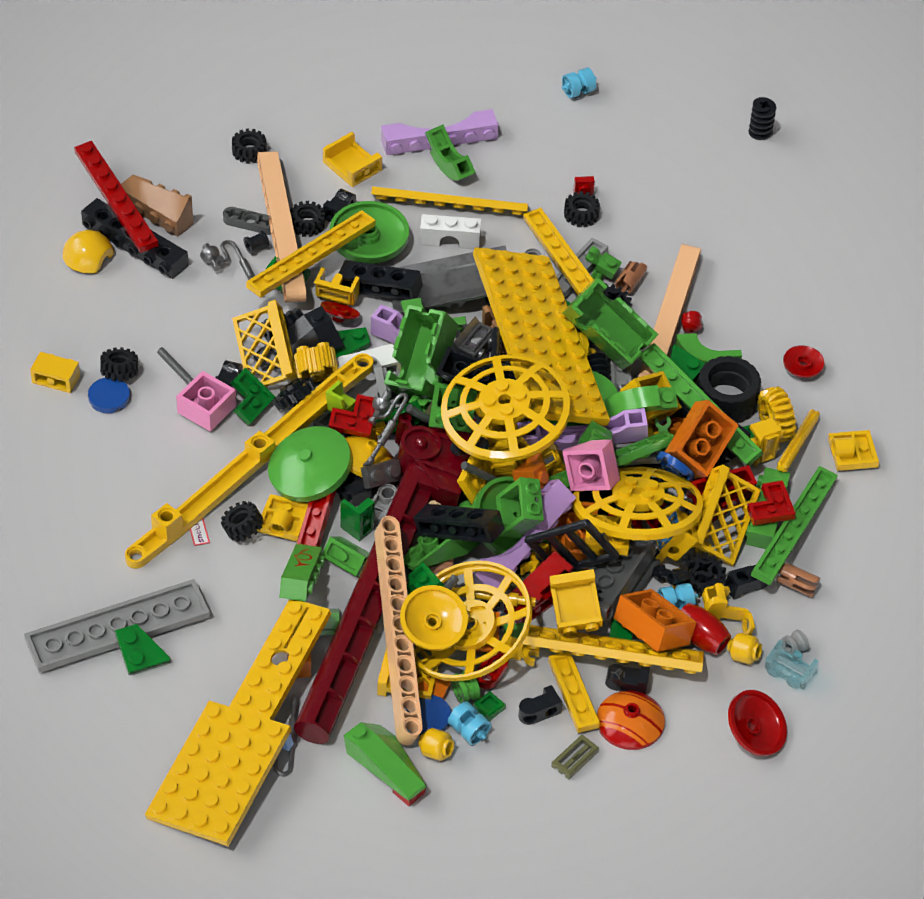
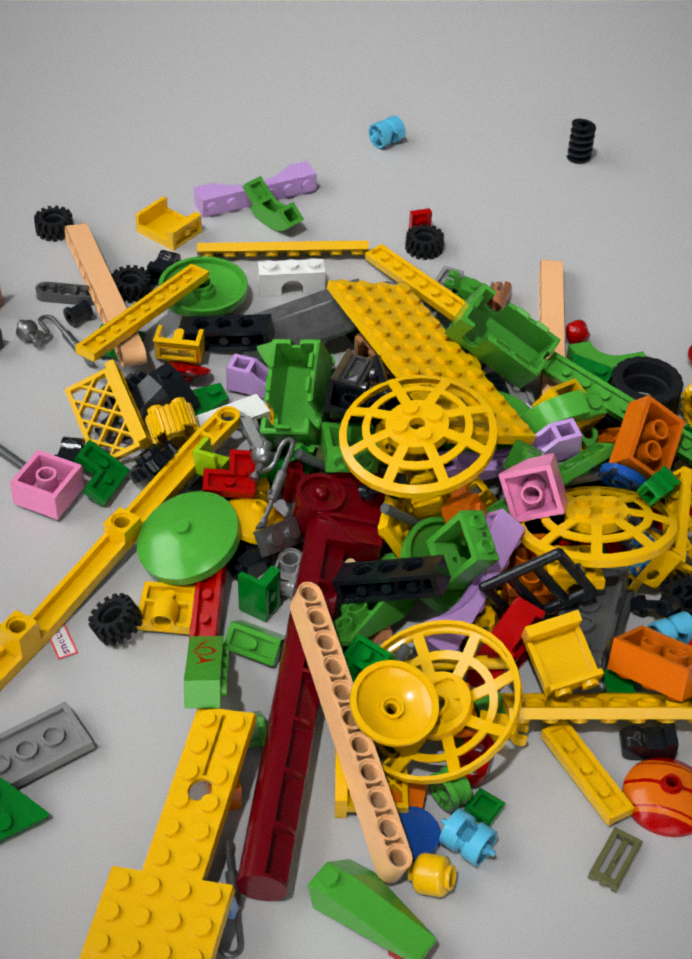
camera: 10 degrees left, 5 degrees down
(541, 707) = (551, 800): black leg -> none
(694, 478) = (658, 486): none -> green leg

